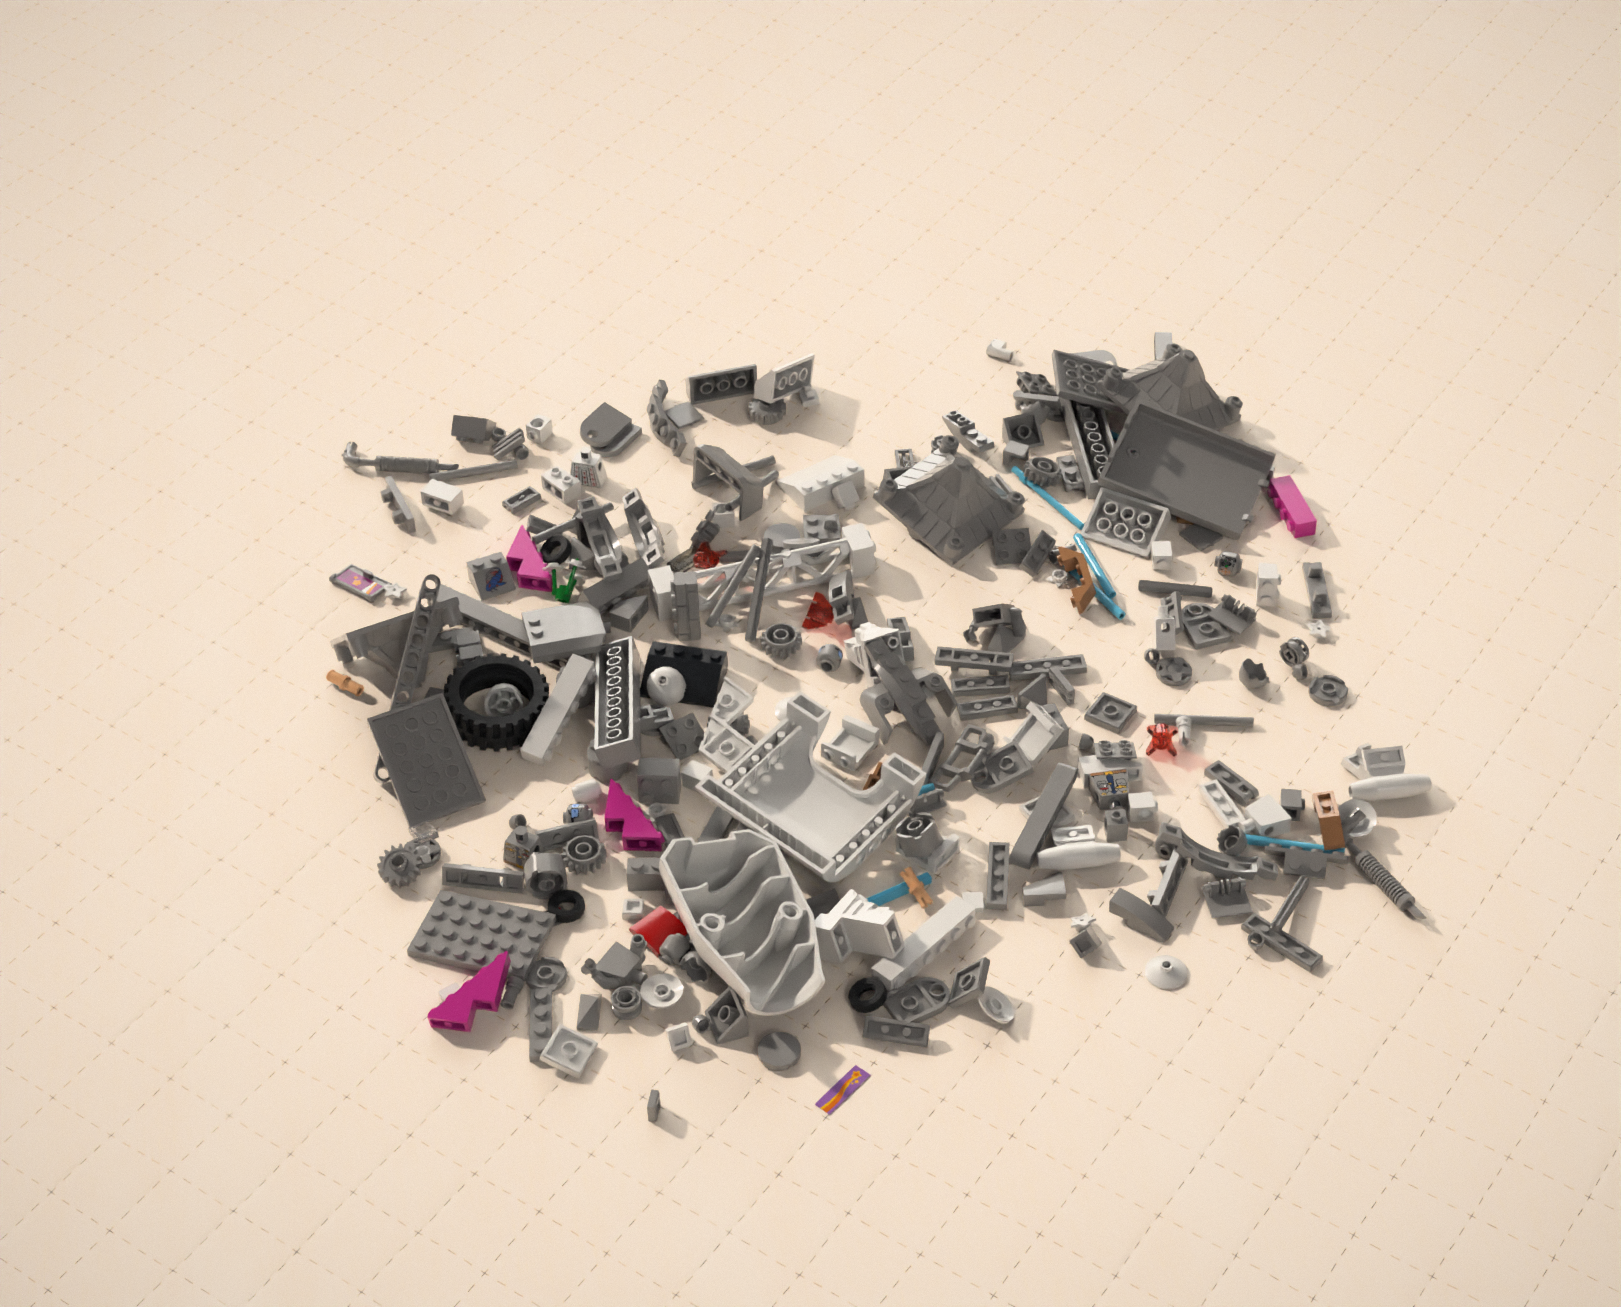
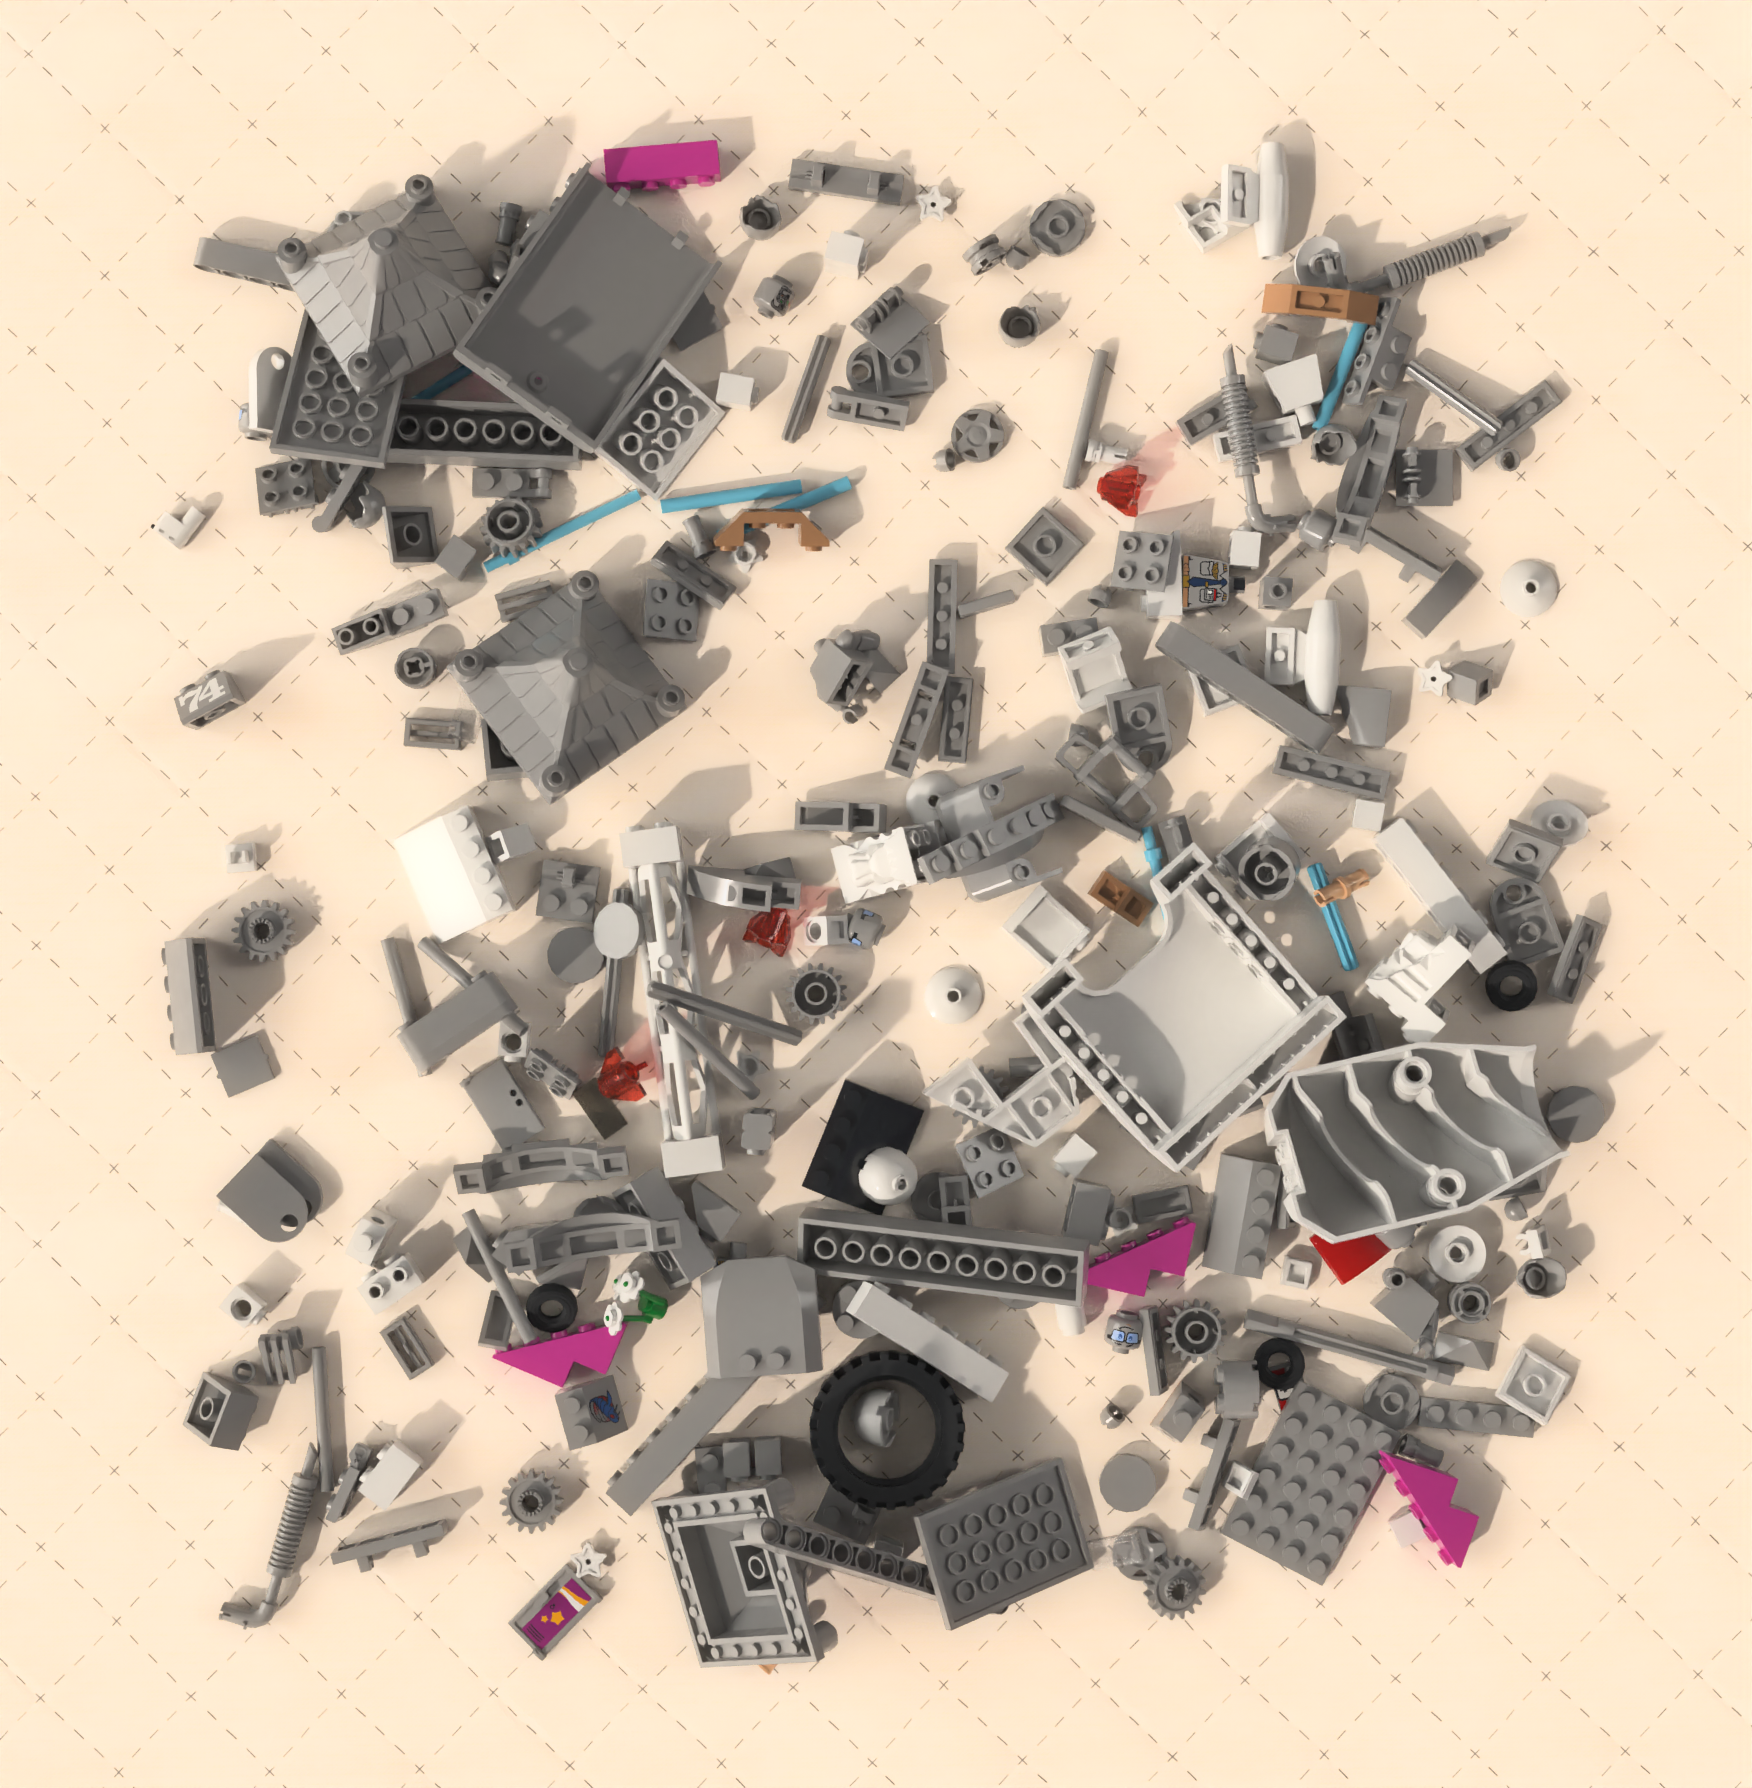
camera: 80 degrees left, 45 degrees up
(420, 480) = (349, 1480): none -> light grey hinge
(431, 559) = (539, 1487): none -> light grey gear
(471, 838) = (1127, 1482): none -> light grey tile
(480, 893) = (1240, 1479): none -> white tile
(583, 942) = (1350, 1347): none -> light grey piece
(651, 1039) = (1542, 1277): none -> light grey hair
(653, 1105) = (1642, 1287): light grey tile -> none
(659, 422) = (267, 1112): light grey piece -> none
(681, 518) = (499, 1108): none -> light grey door
(785, 380) = (218, 894): white slope -> none
(823, 635) = (825, 930): none -> white brick
(842, 1089) = (1645, 1042): medium lavender sticker -> none
(898, 369) = (209, 700): none -> light grey slope
(987, 707) = (1002, 719): light grey tile -> none
(1034, 692) = (996, 645): light grey slope -> none
(1163, 638) = (916, 431): white torso -> none
(1213, 788) = (1241, 435): none -> light grey piece
(1274, 551) = (760, 218): none -> light grey hair

